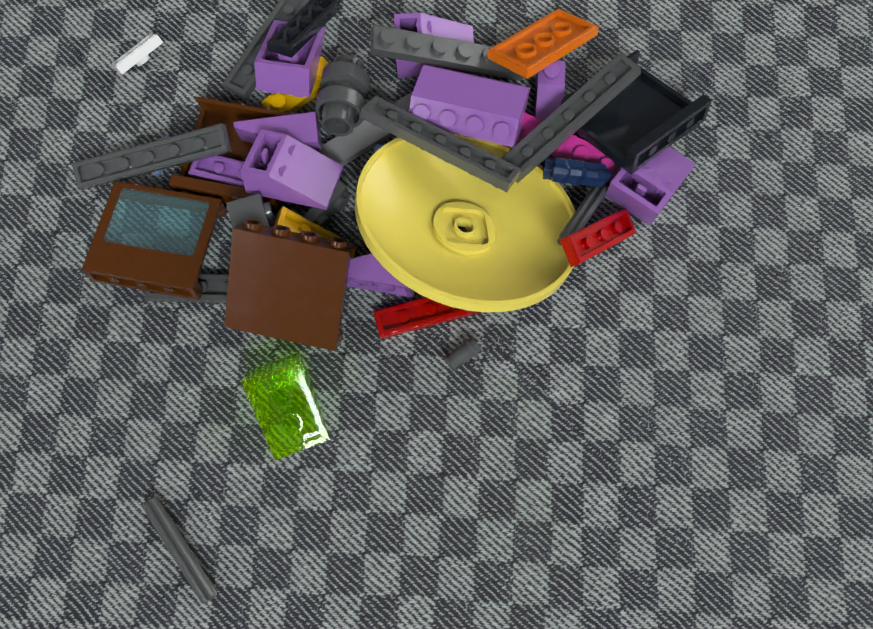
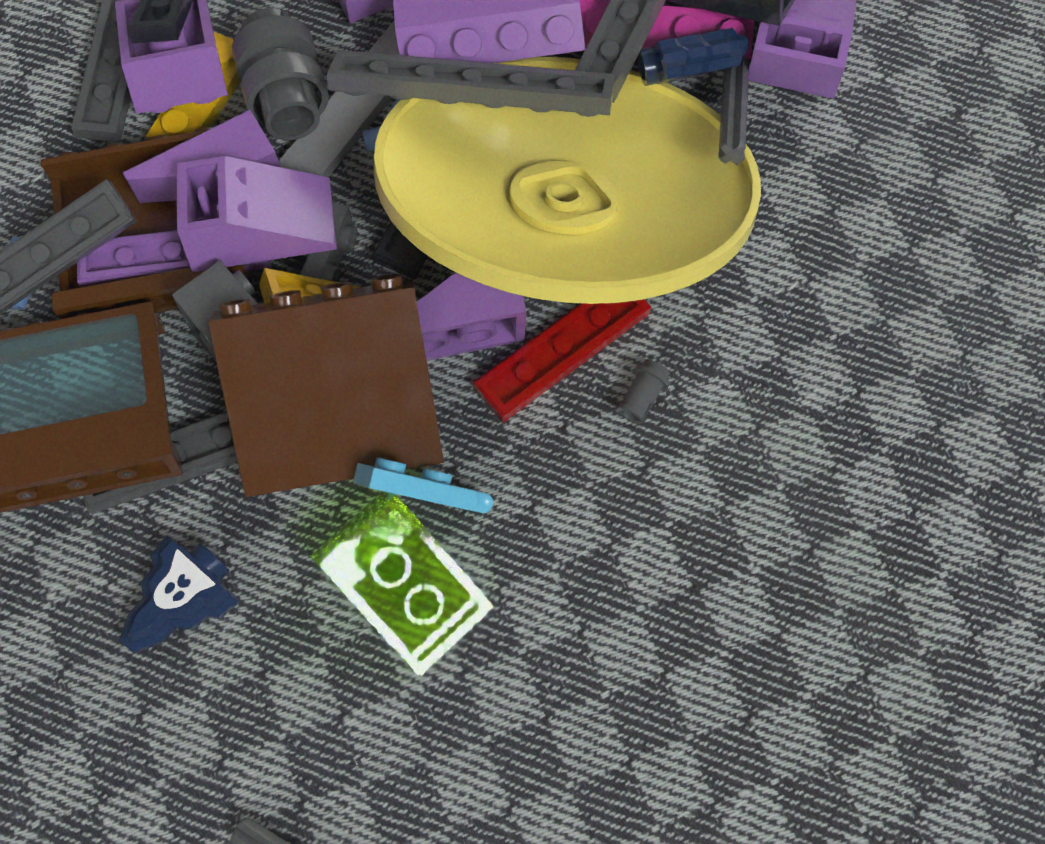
camera: 25 degrees left, 5 degrees down
(170, 363) = (177, 594): none -> dark blue rock
(321, 362) = (431, 486): none -> medium azure hinge
(597, 237) = (773, 133): red tile -> none

